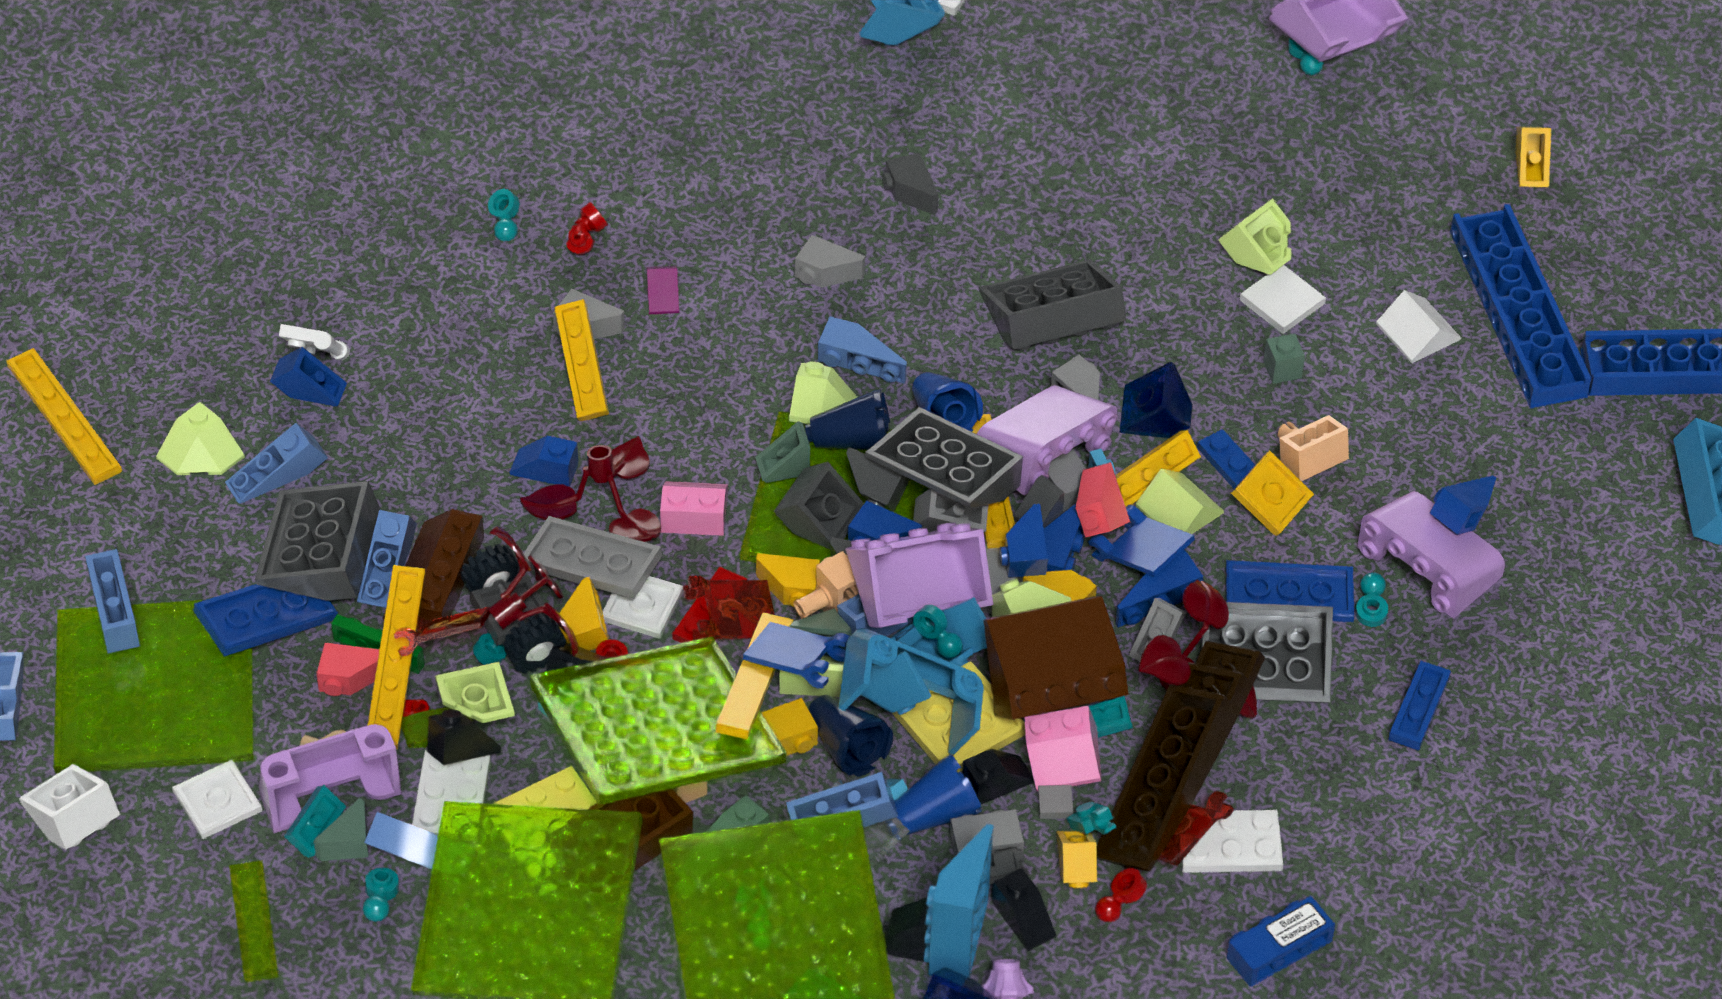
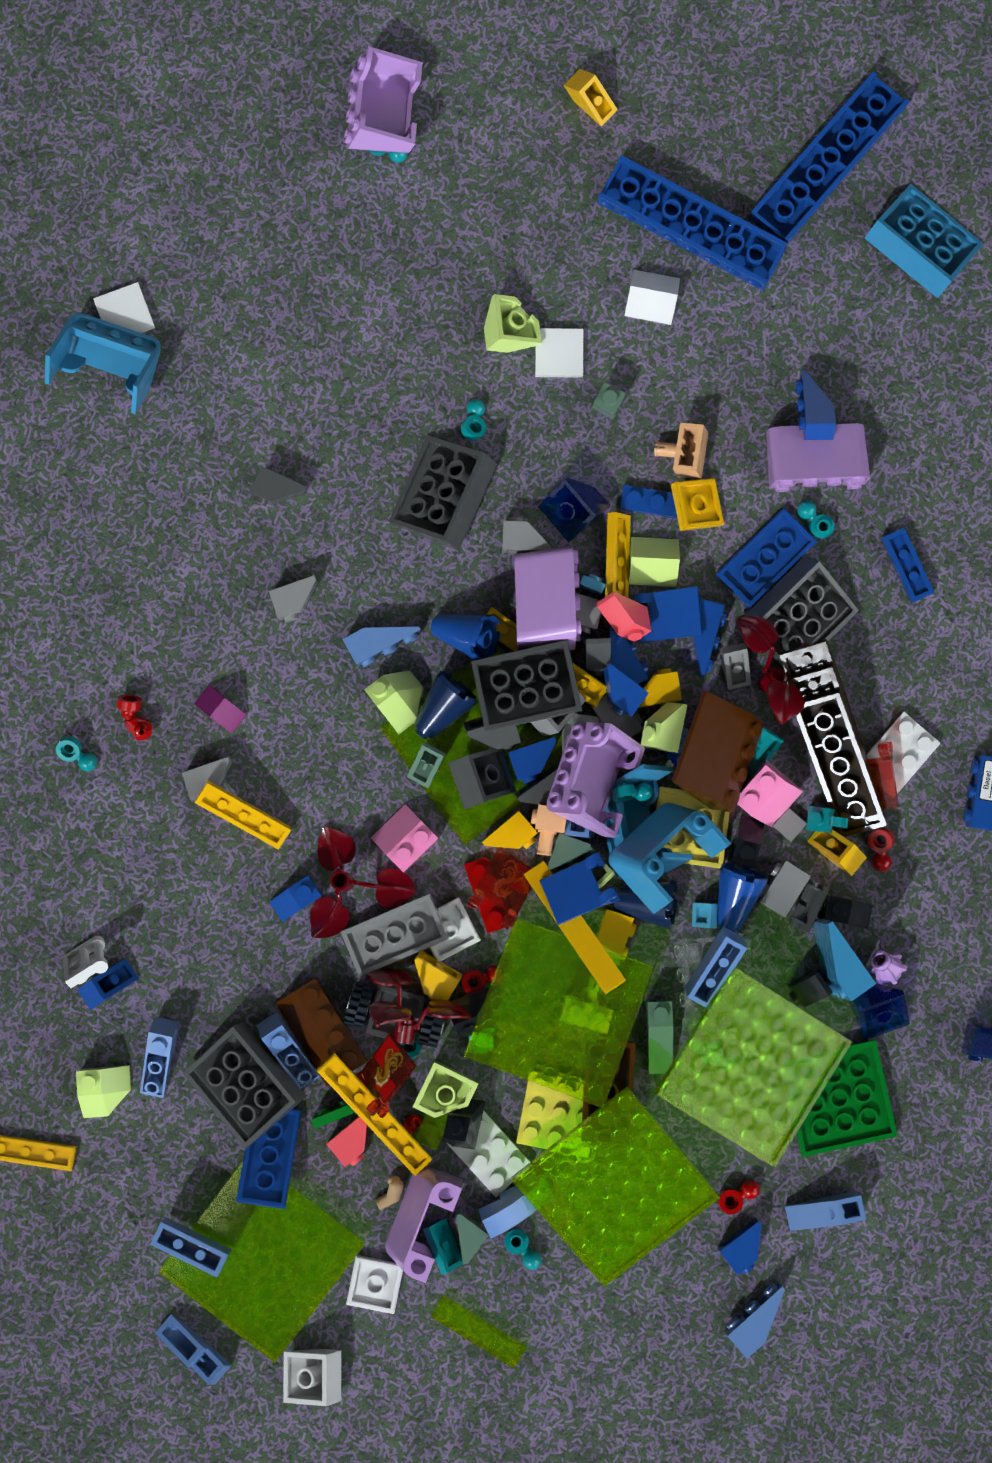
camera: 50 degrees left, 35 degrees up
(1139, 281) = (475, 409): none -> teal plate

